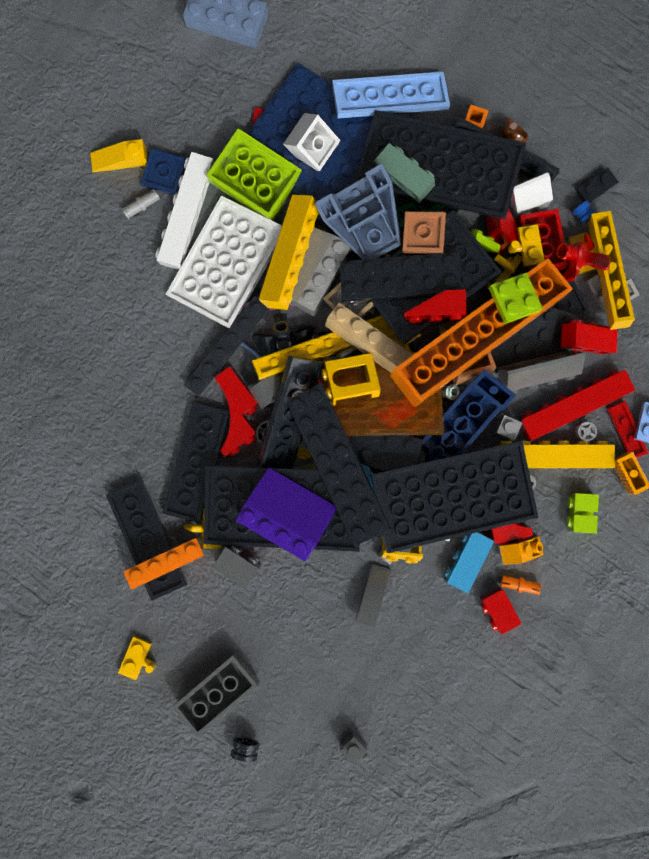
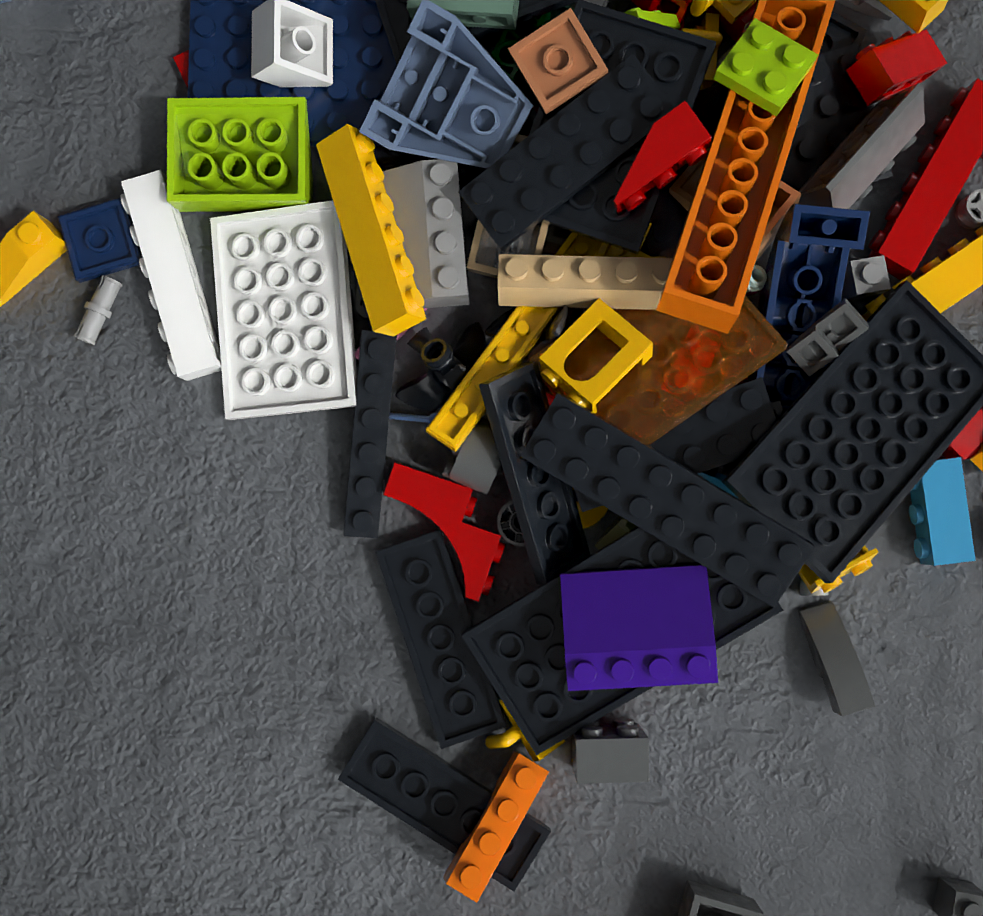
camera: 40 degrees left, 0 degrees up
(466, 442) = (826, 337): none -> dark grey slope

